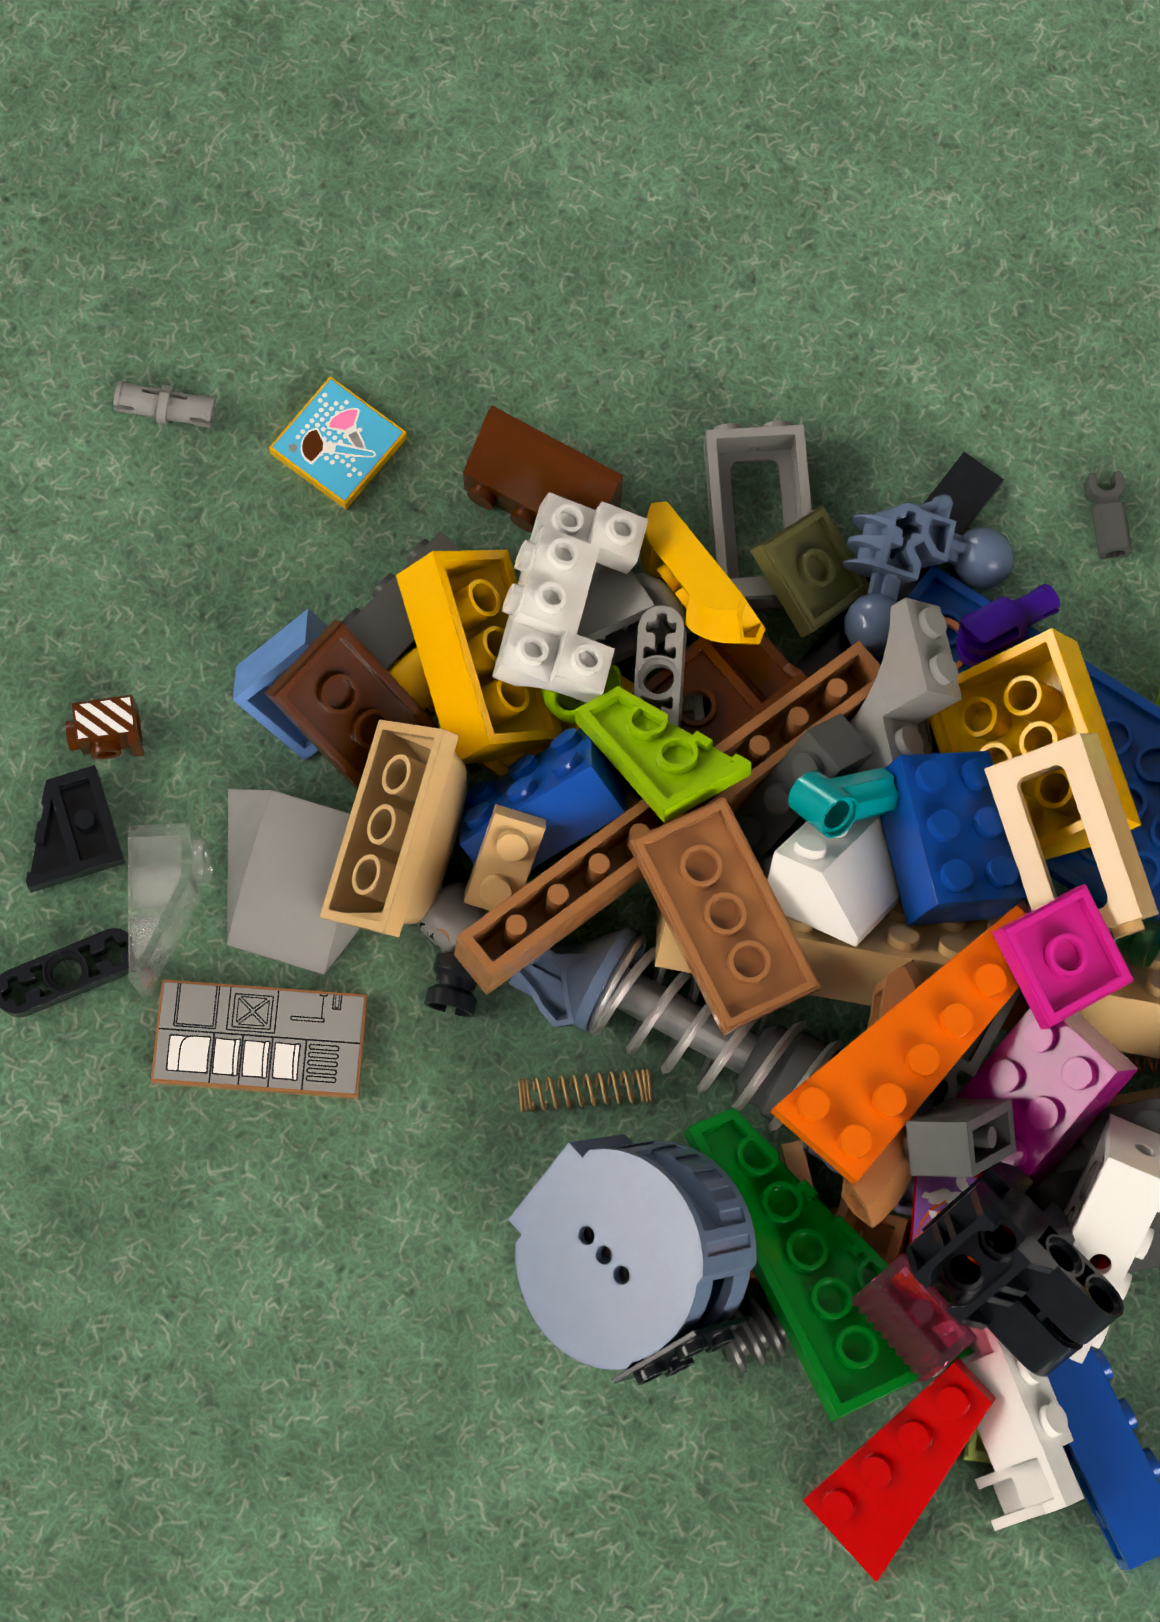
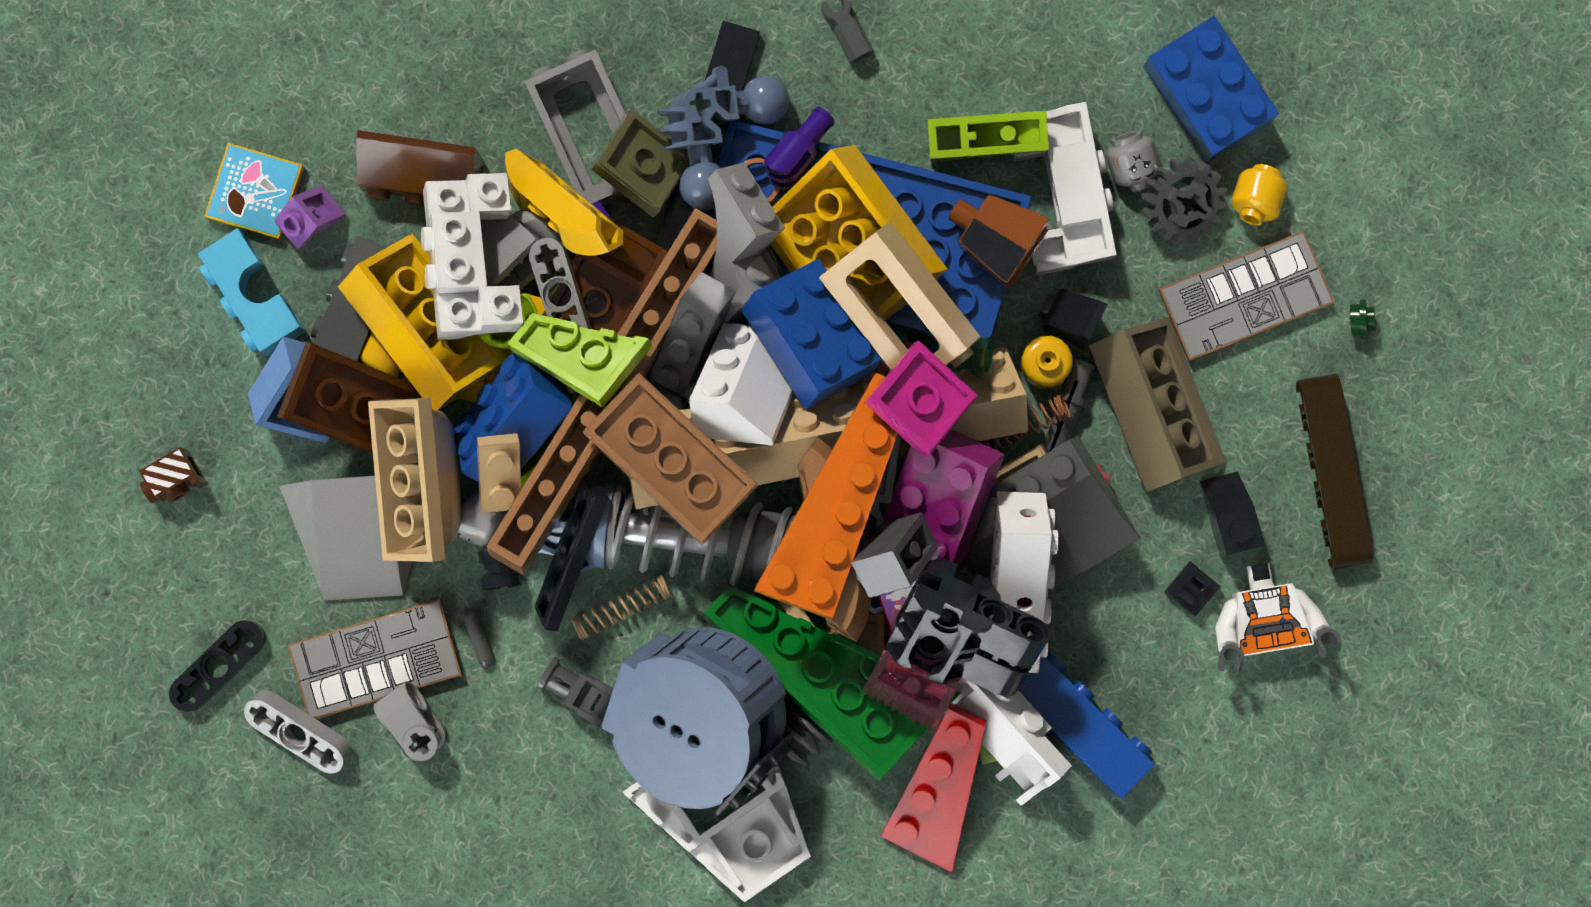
camera: 15 degrees left, 10 degrees up
(74, 831) = (180, 561): black wing -> none
(152, 1092) = (281, 733): none -> light grey beam
(163, 893) = (263, 586): clear slope -> none
(164, 404) = (112, 212): light grey pin -> none
(273, 1123) = (407, 718): none -> light grey piece
(278, 512) = (230, 266): none -> medium azure arch
(390, 487) = (308, 215): none -> medium lavender bracket
(394, 1060) = (478, 638): none -> dark grey piece
(496, 1175) = (581, 694): none -> dark grey connector
(551, 993) = (571, 552): none -> black tile
(626, 1448) = (746, 847): none -> white wing
(840, 801) = (720, 346): teal piece -> none

